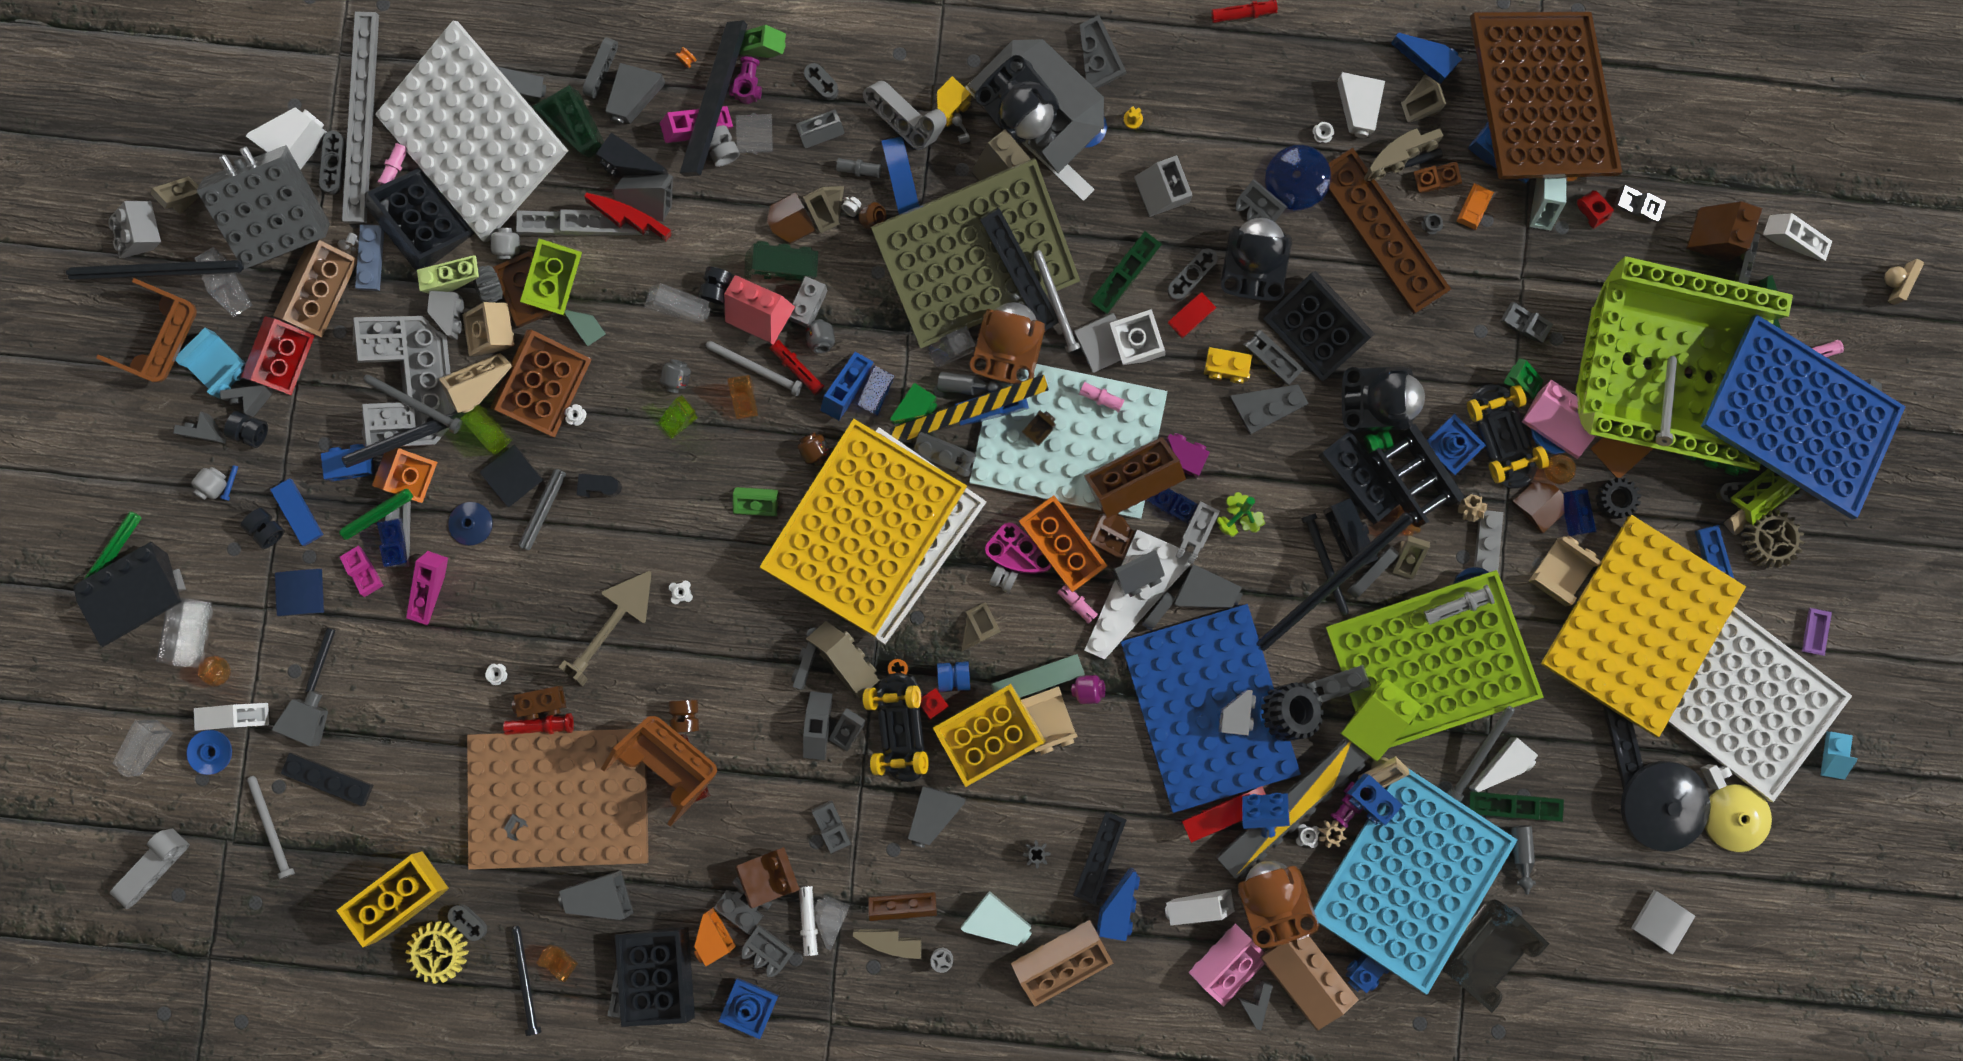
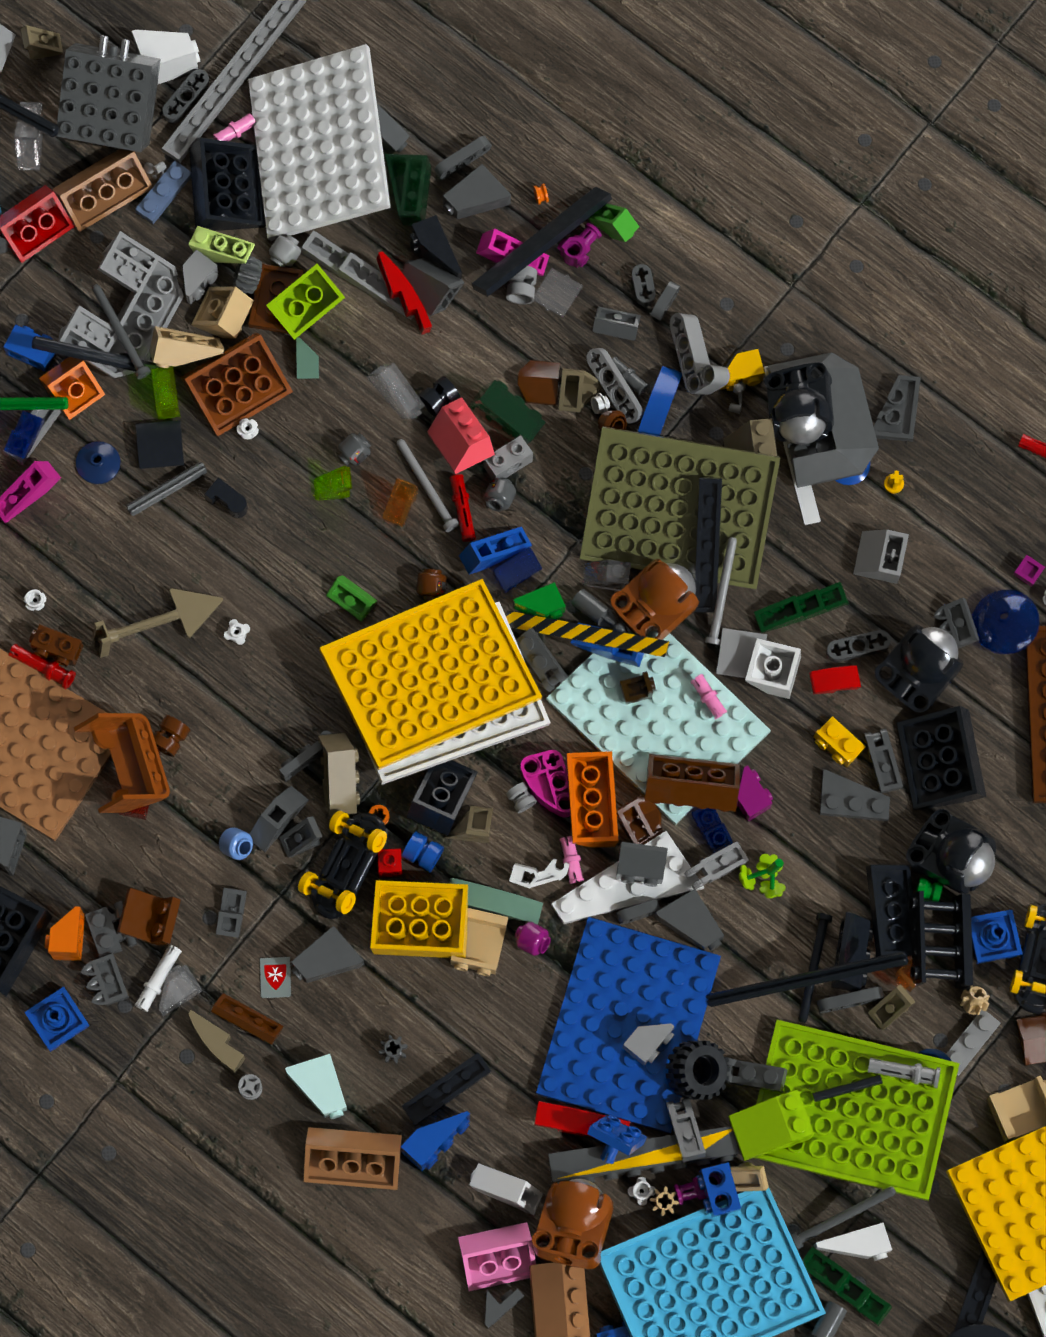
camera: 25 degrees right, 10 degrees down
(797, 770) = (235, 843): none -> medium blue head
(848, 83) = (665, 300): none -> dark grey beam
(854, 179) = (617, 382): none -> light grey beam
(901, 855) = (275, 977): none -> light grey sticker
(939, 619) = (442, 796): none -> black slope
(1067, 629) = (550, 874): none -> white piece
(1289, 122) = (1029, 570): none -> magenta plate
(1315, 768) = (686, 1130): none -> dark grey plate
(1420, 648) = (847, 1088): none -> black bar

